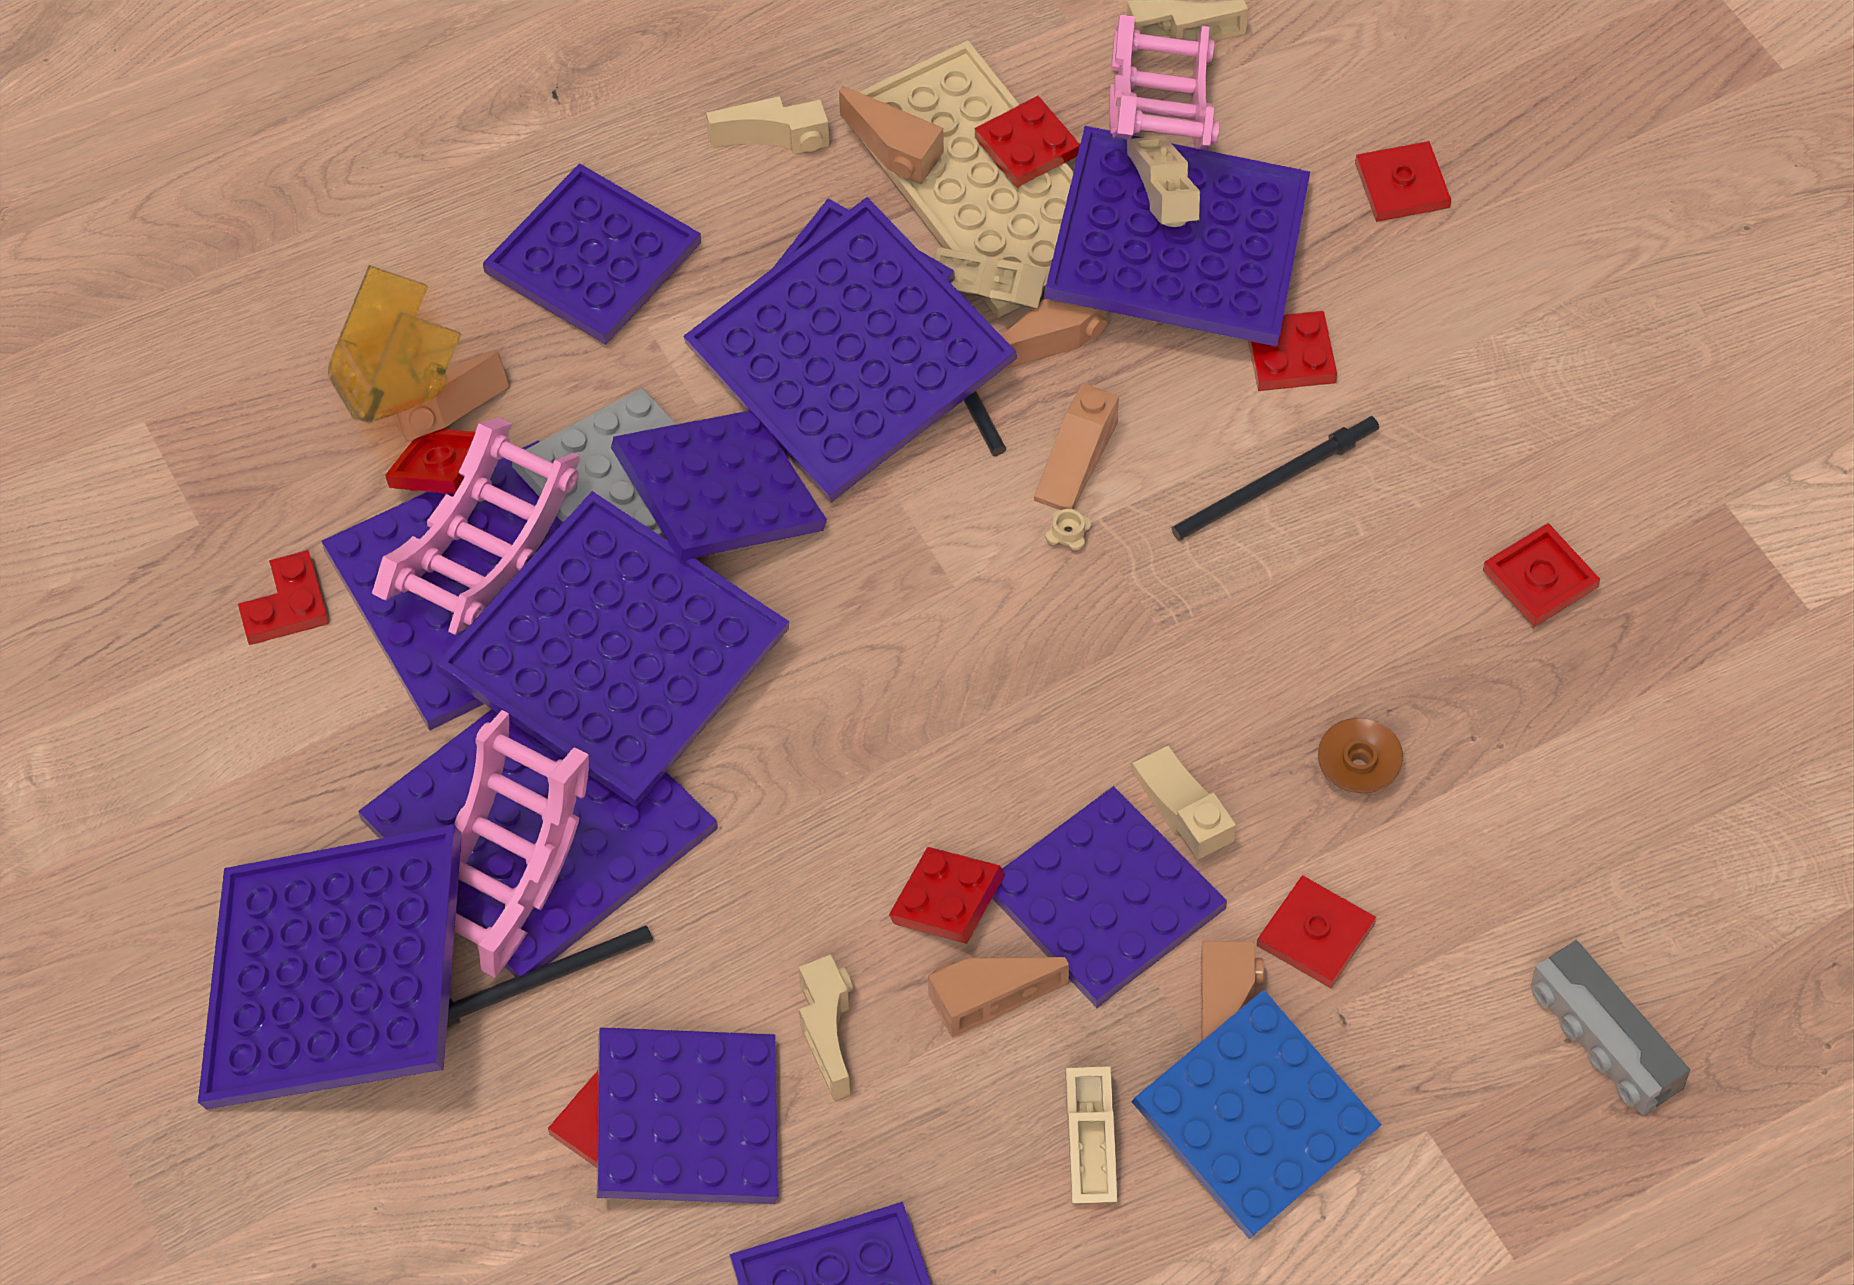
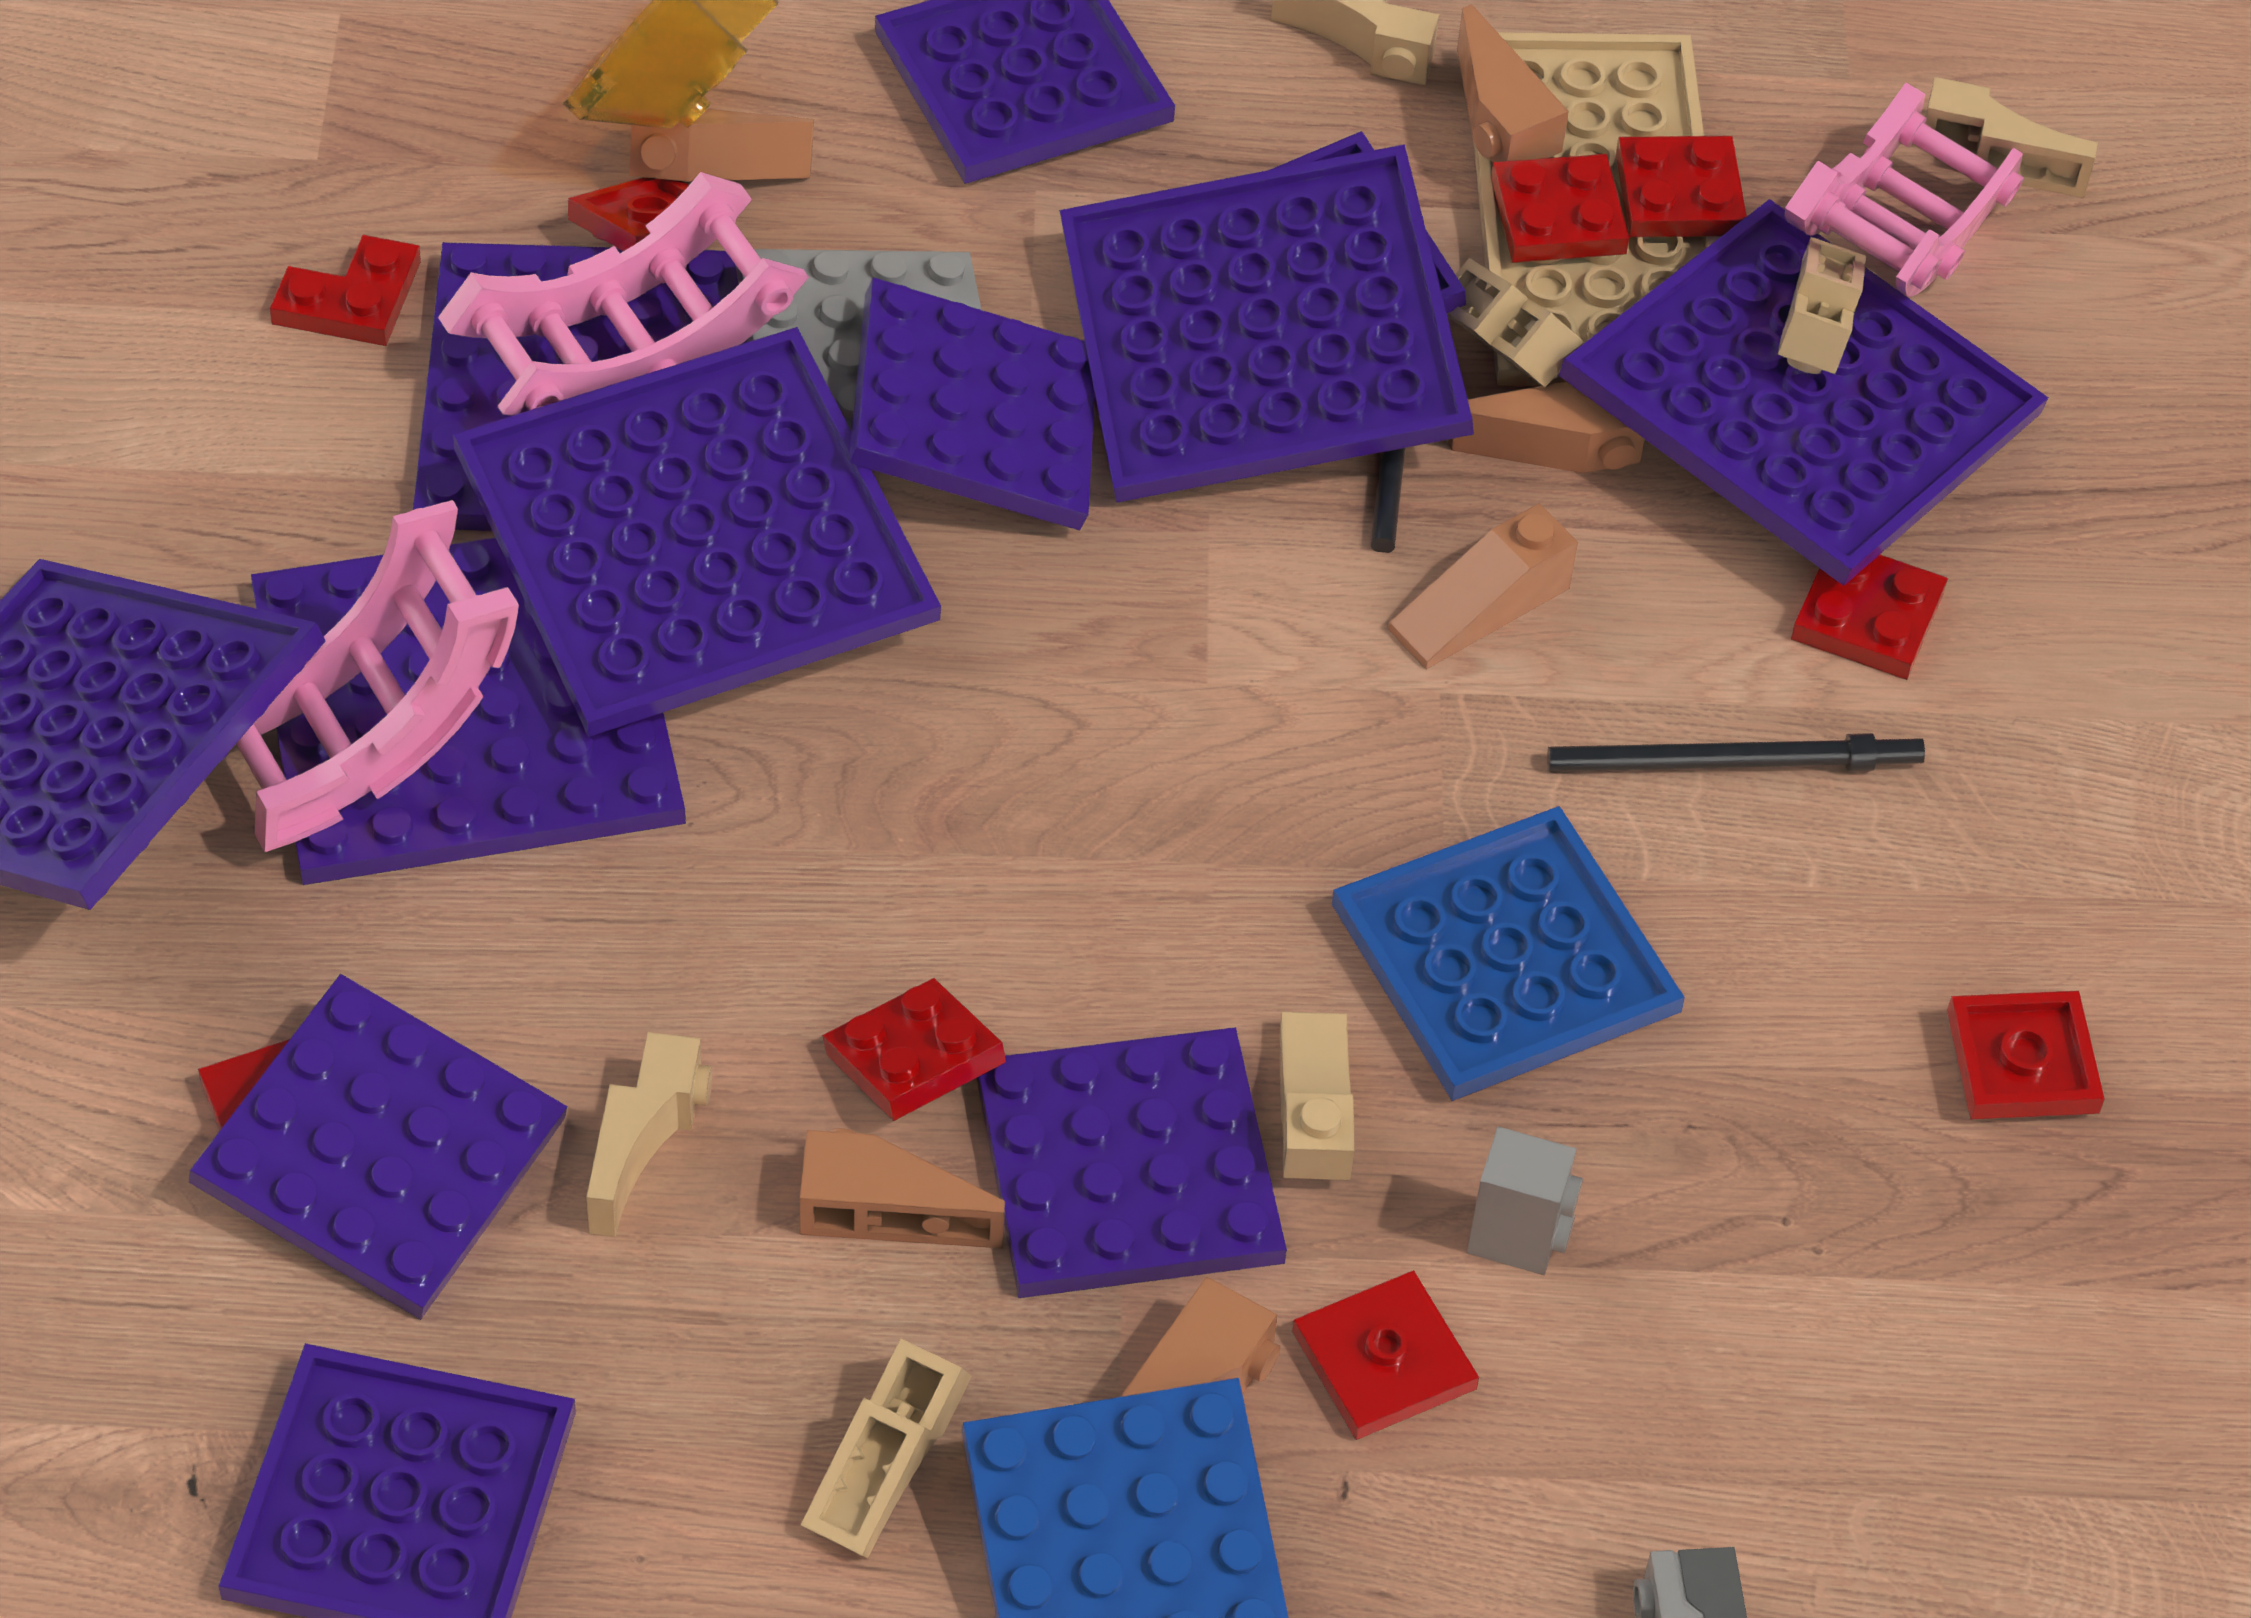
camera: 25 degrees right, 5 degrees down
(547, 974) = (183, 868): black bar -> none
(968, 189) = (1559, 208): none -> red plate
(1071, 520) = (1406, 669): tan plate -> none
(1230, 662) = (1506, 952): none -> blue plate
(1342, 804) = (1525, 1201): none -> light grey brick
(1363, 741) = (1619, 1141): dark orange dish -> none
(1402, 181) = (2175, 471): red plate -> none

